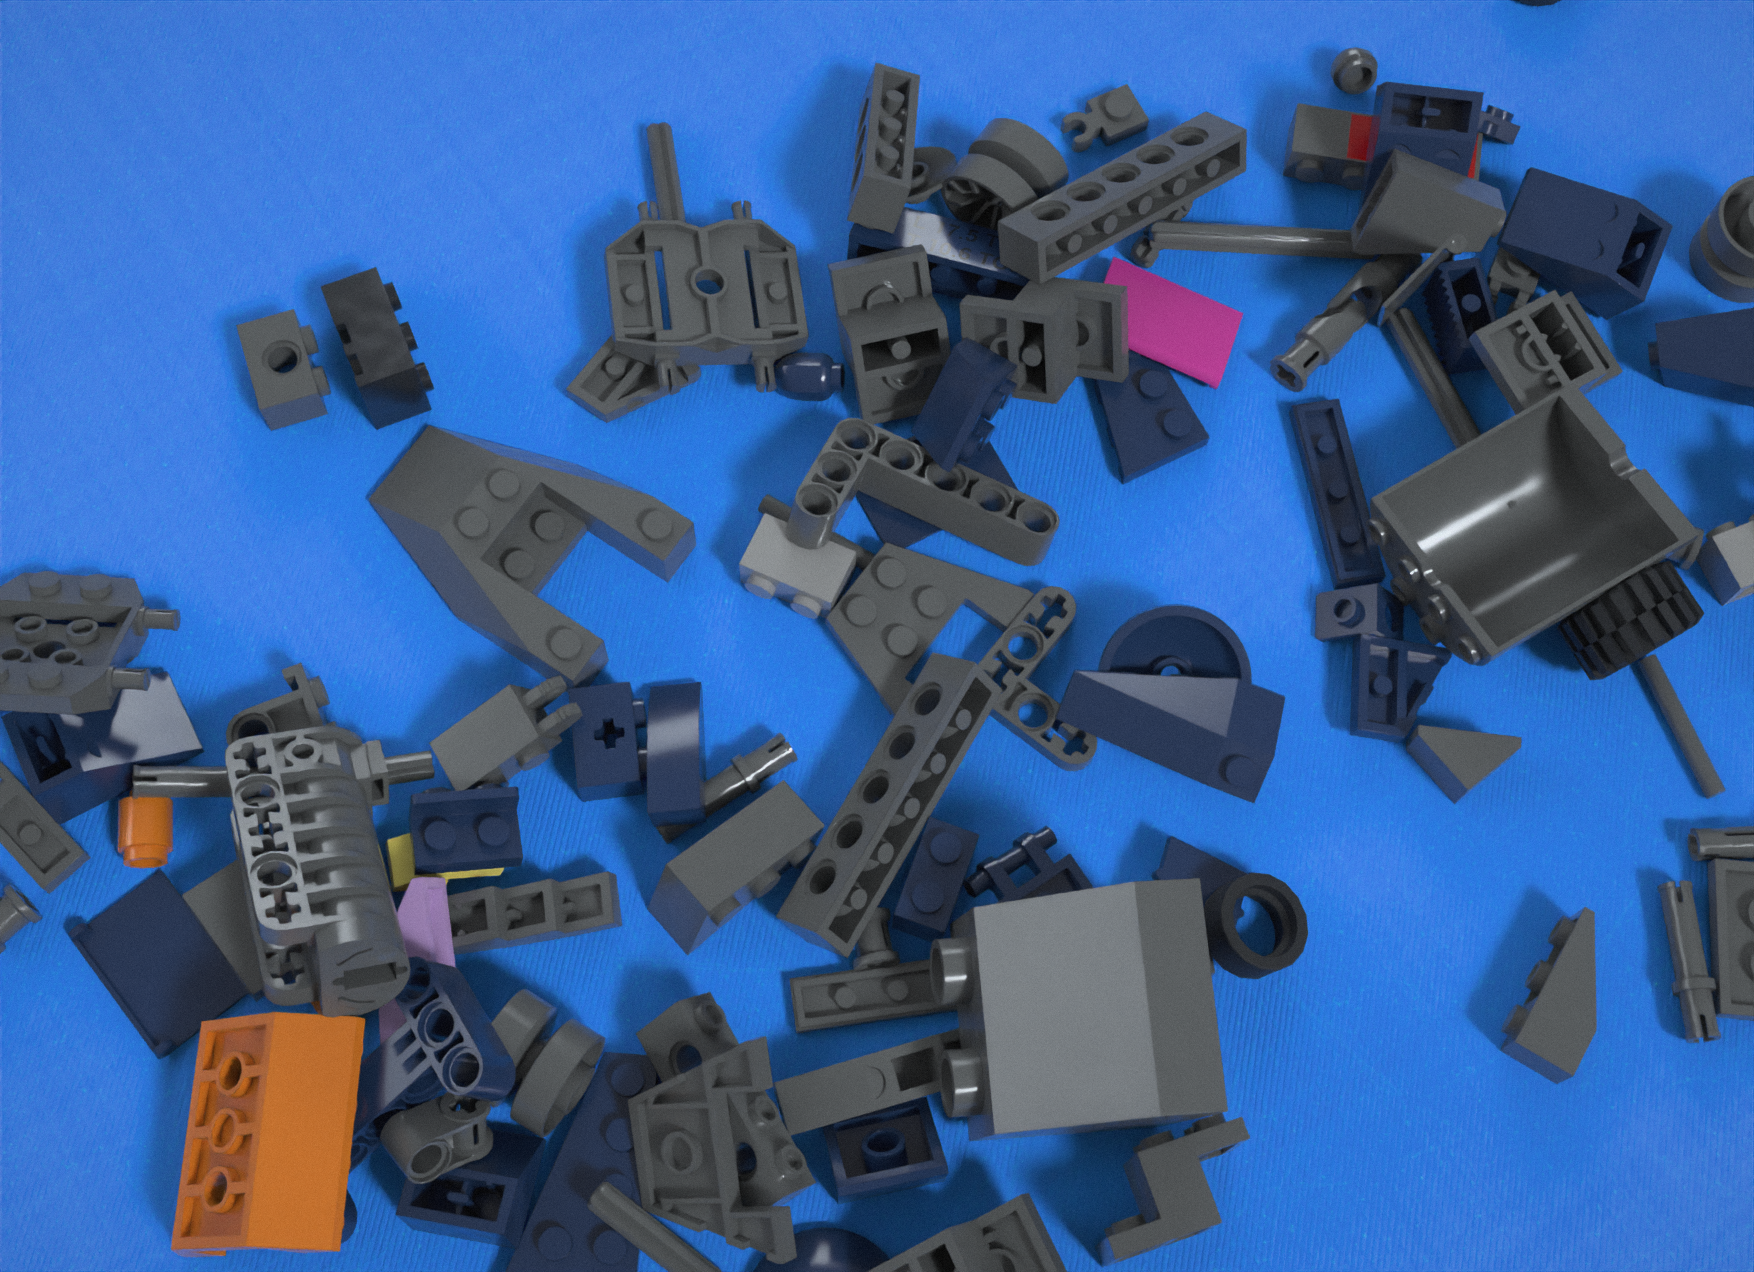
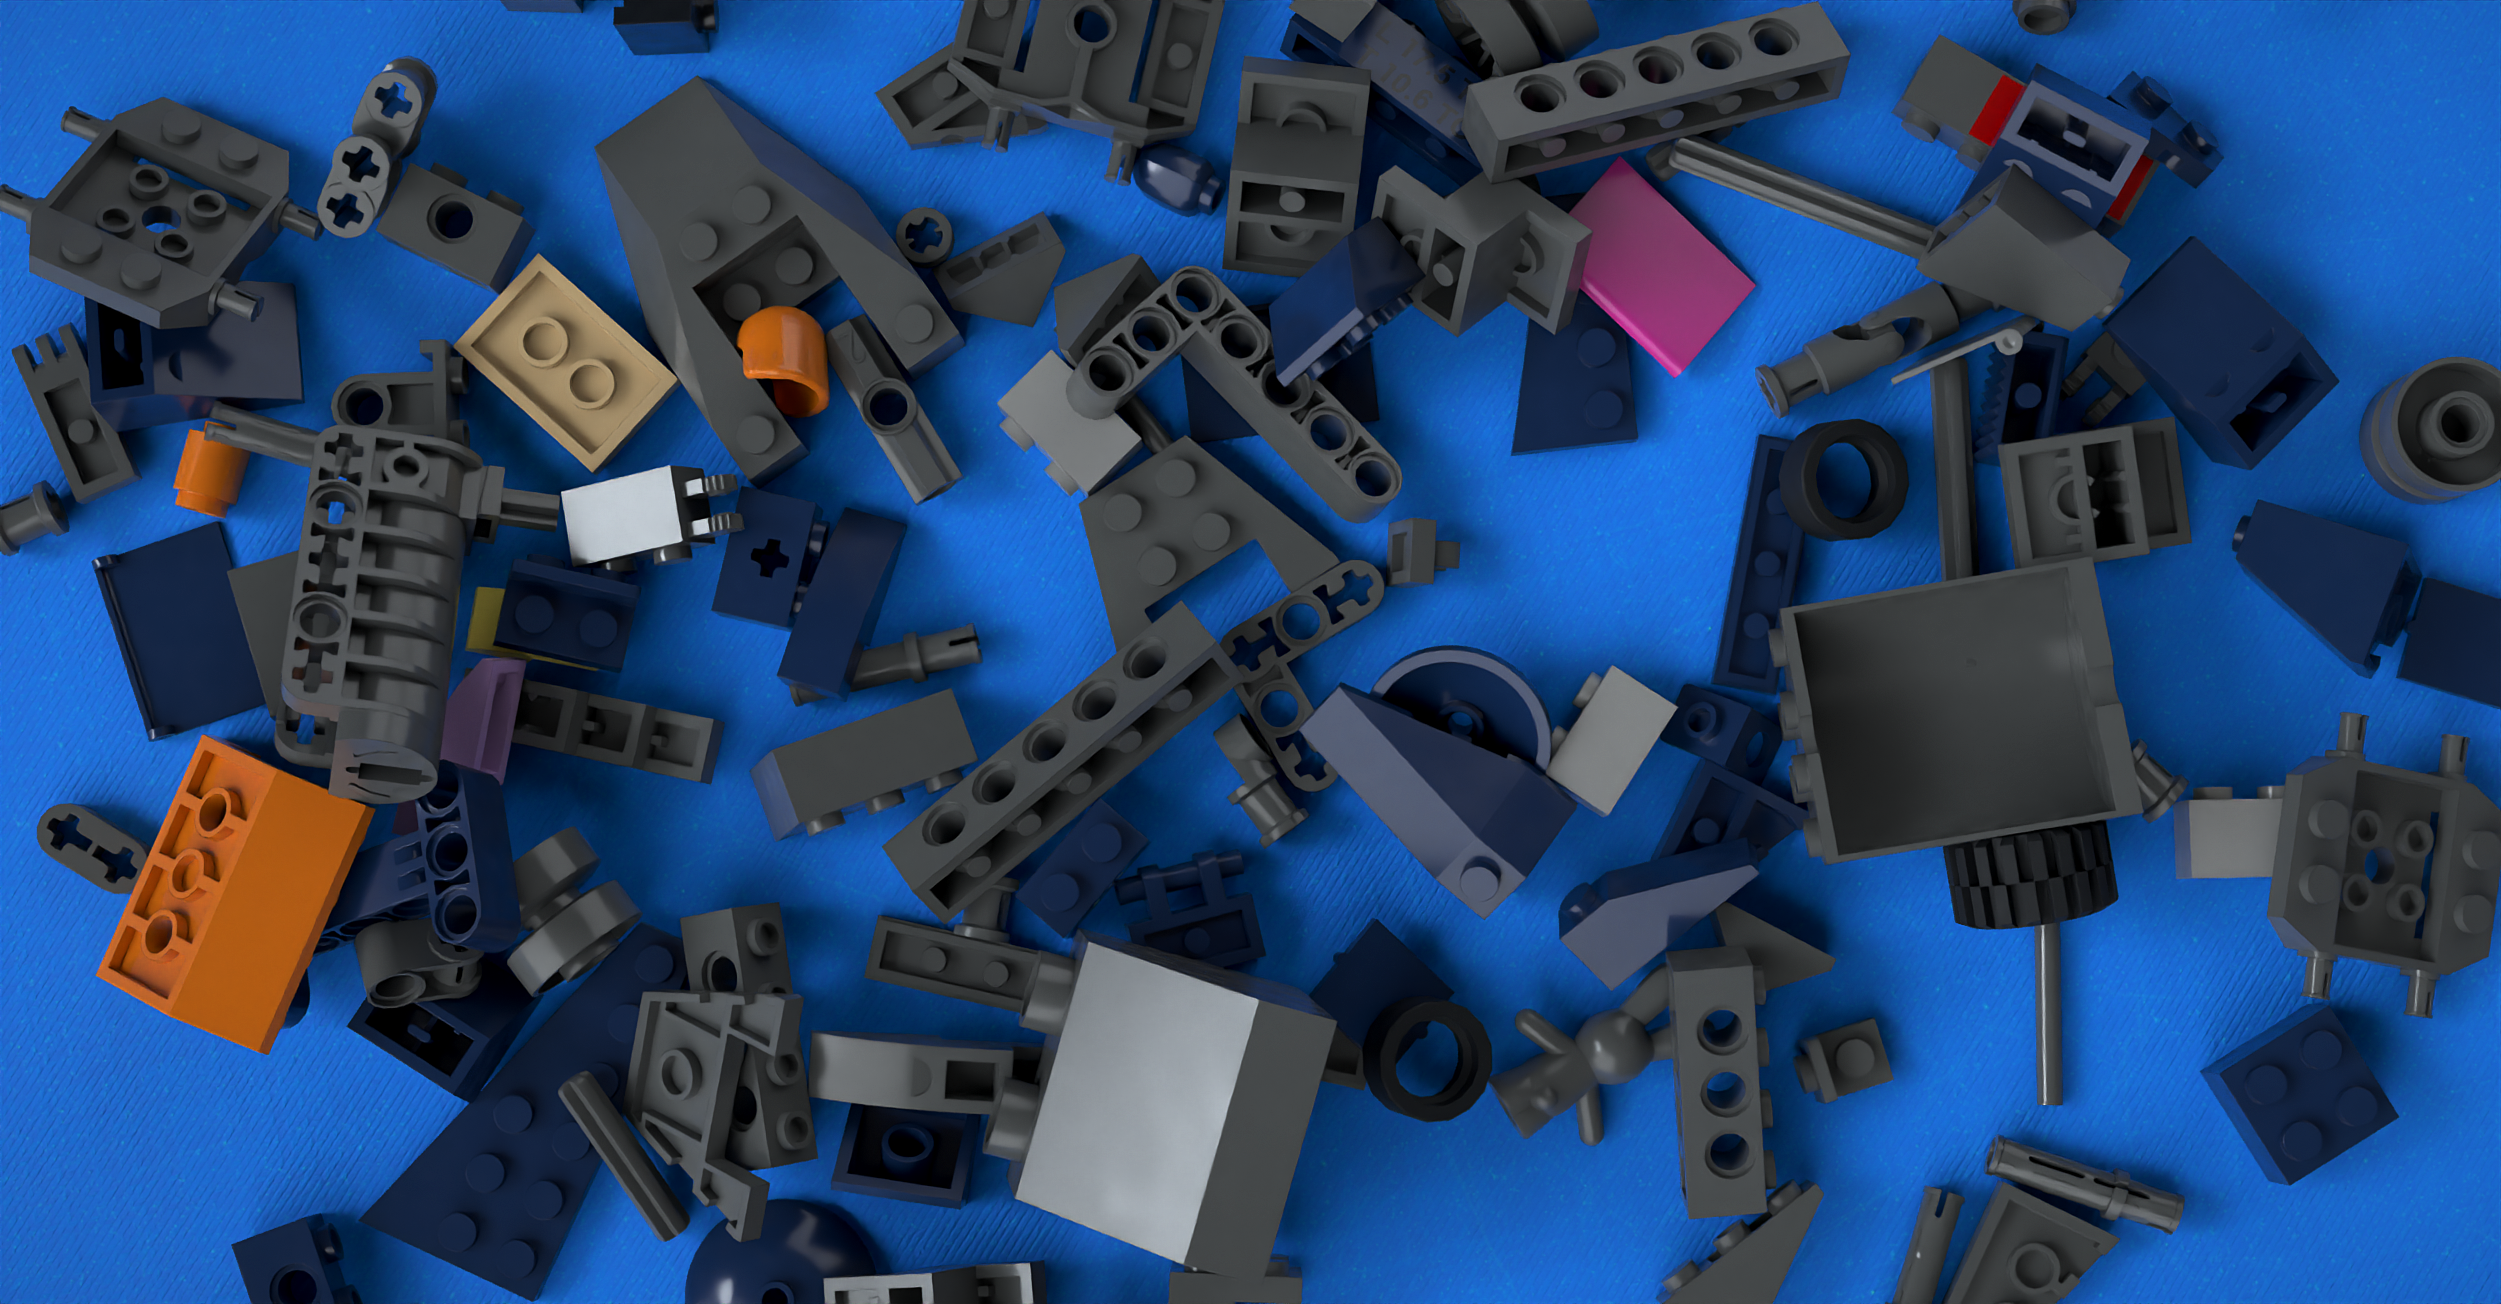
camera: 25 degrees right, 15 degrees up
(136, 1172) = (88, 861): none -> dark grey beam
(190, 560) = (370, 159): none -> dark grey axle
(306, 603) = (419, 219): none -> dark grey brick
(401, 655) = (567, 364): none -> tan plate
(571, 587) = (792, 353): none -> orange hair
(637, 582) = (912, 443): none -> dark grey piece
(639, 461) = (917, 220): none -> dark grey bush
(710, 481) = (1005, 274): none -> dark grey slope
(784, 472) = (1097, 303): none -> dark grey slope
(1045, 778) = (1261, 793): none -> dark grey connector
(1086, 567) = (1416, 554): none -> dark grey tile
(1284, 644) = (1606, 739): none -> light grey brick
(1348, 430) = (1887, 479): none -> black tyre
(1366, 753) = (1647, 906): none -> dark blue slope
(1382, 872) = (1606, 1050): none -> dark grey animal
(1476, 890) = (1698, 985): none -> dark grey brick
(1554, 818) = (1842, 1061): none -> dark grey bracket

